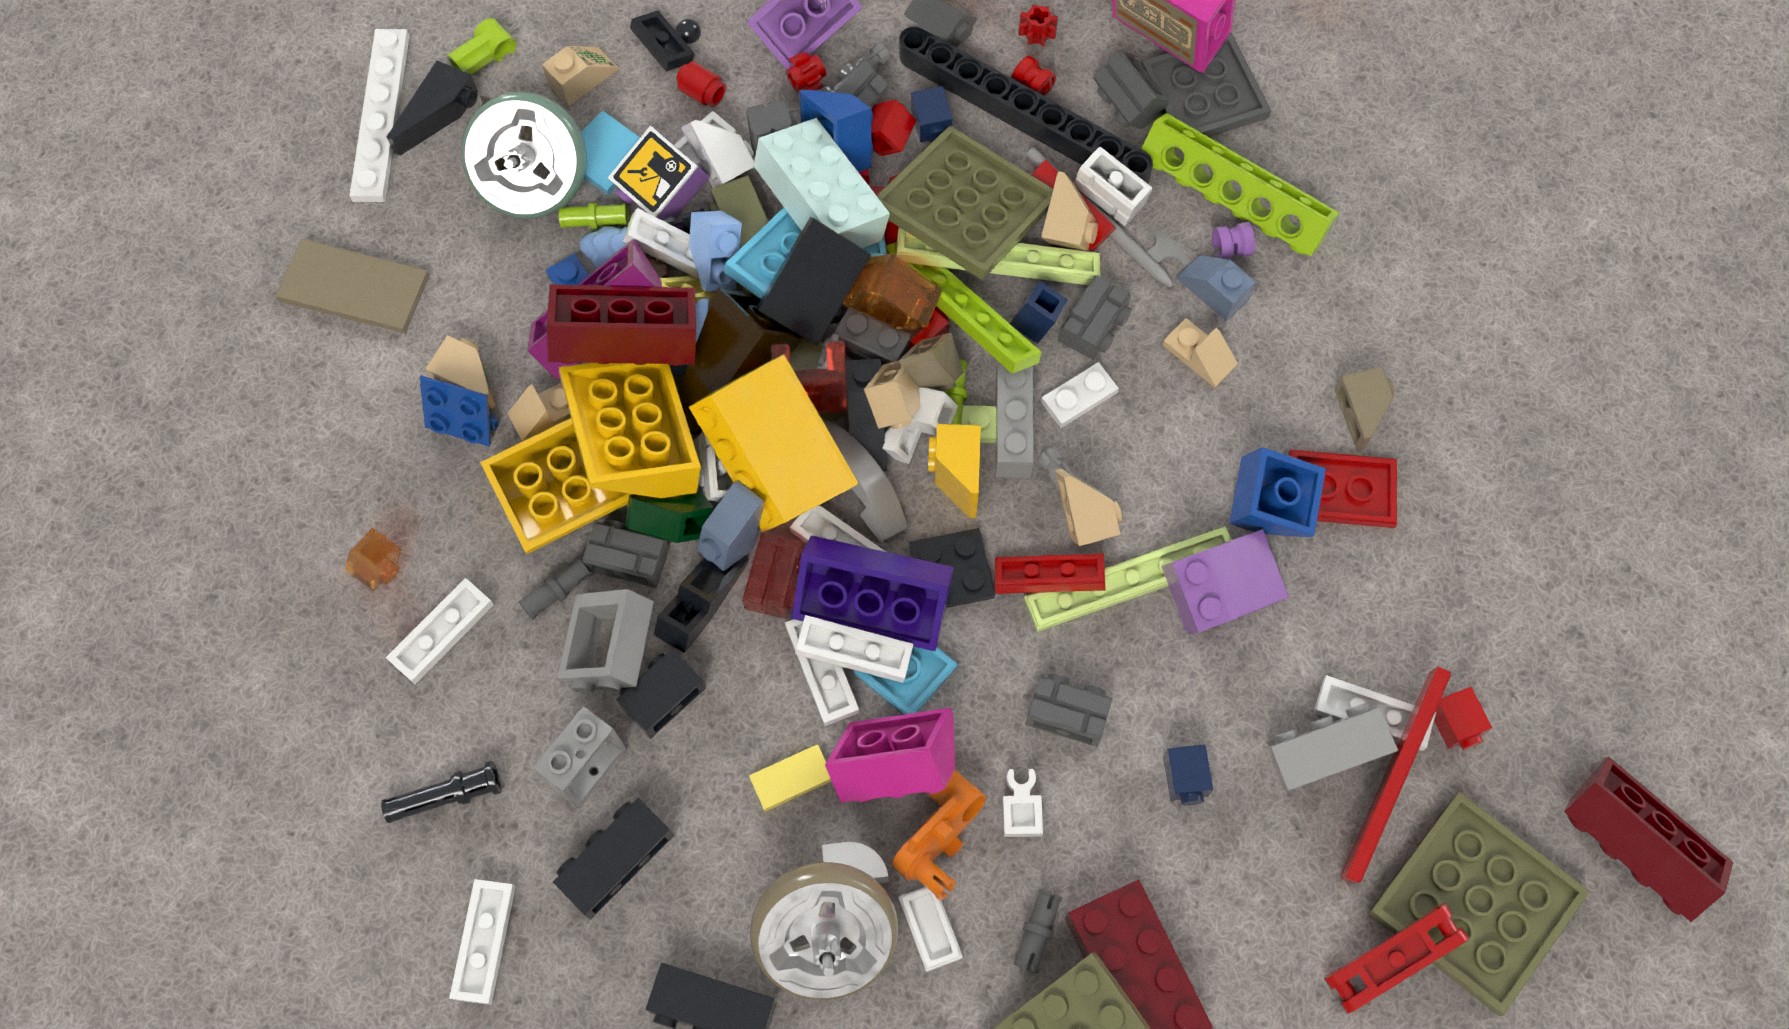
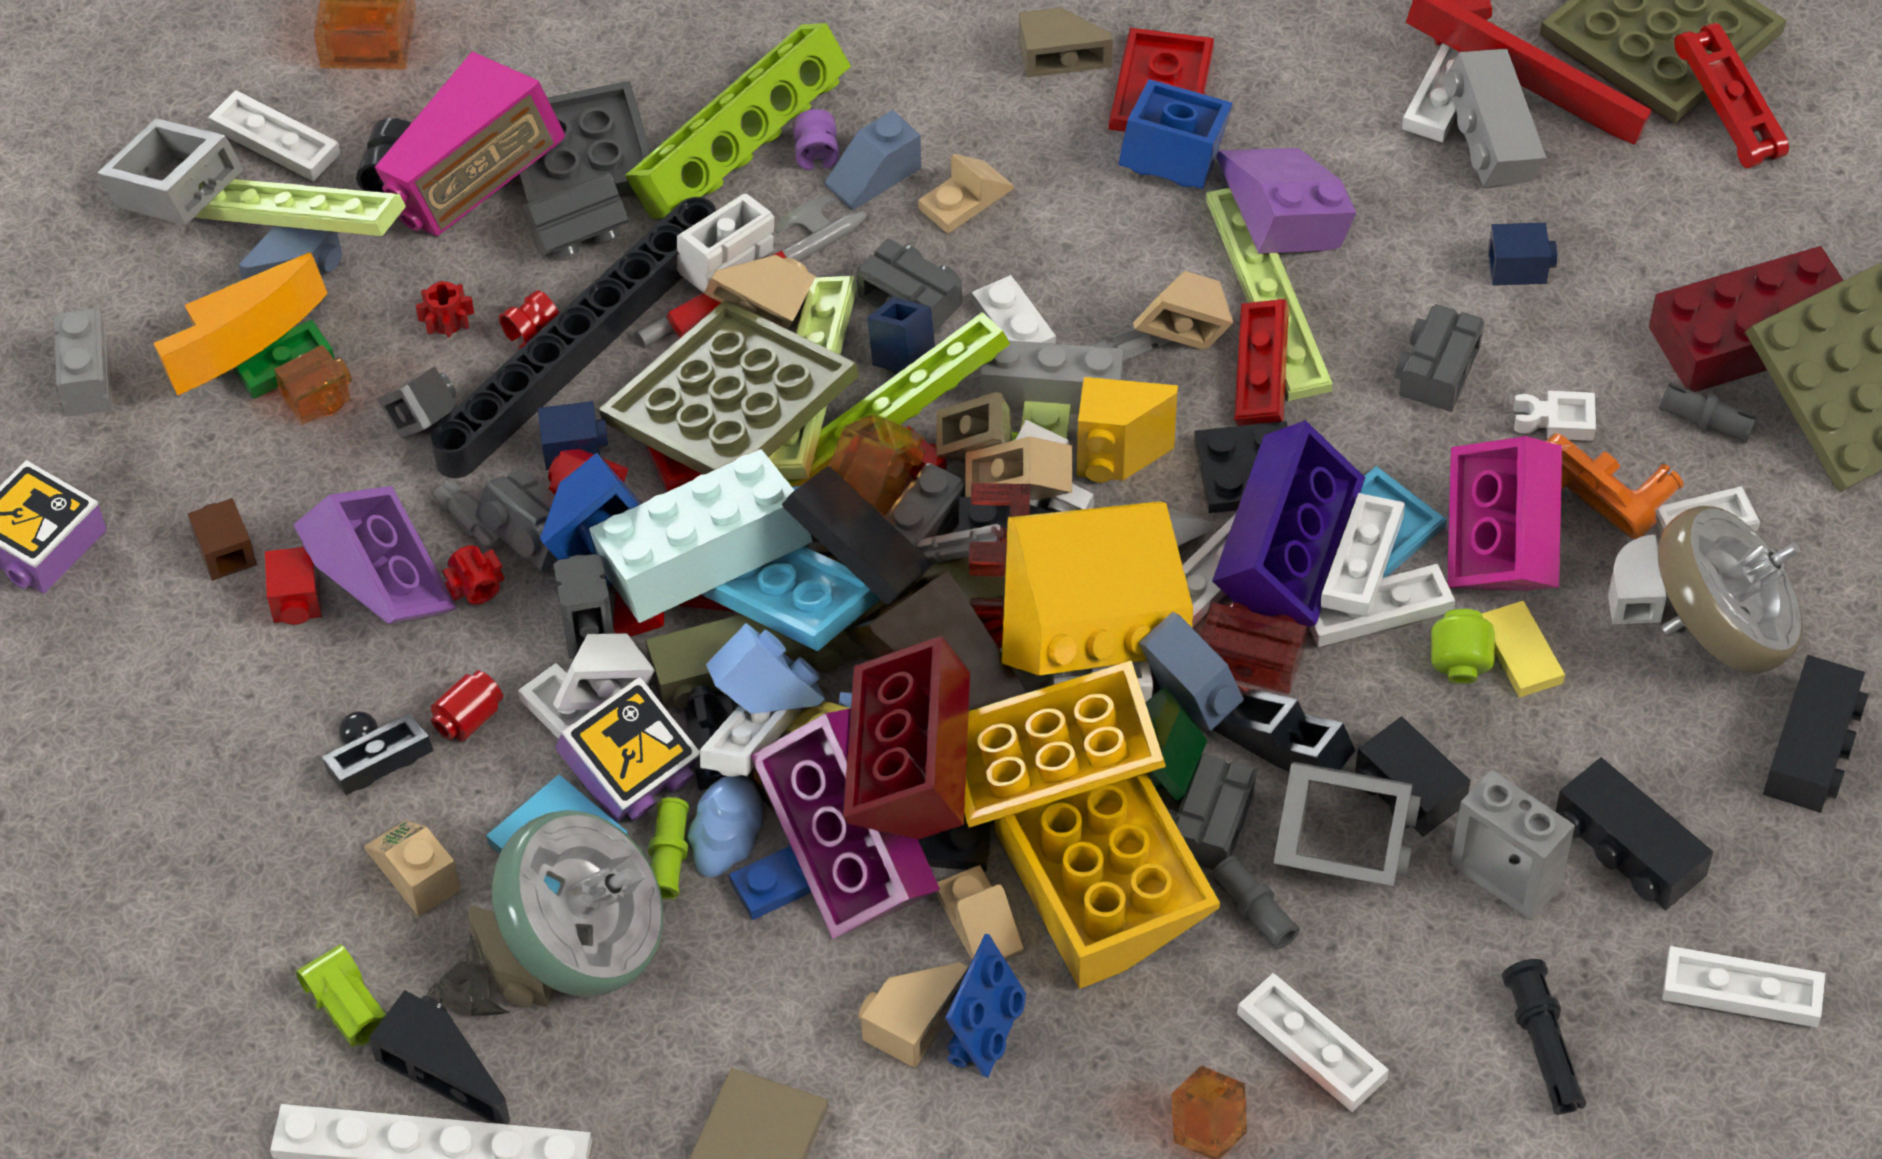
camera: 85 degrees left, 15 degrees down
(783, 730) = (1463, 645): none -> lime head

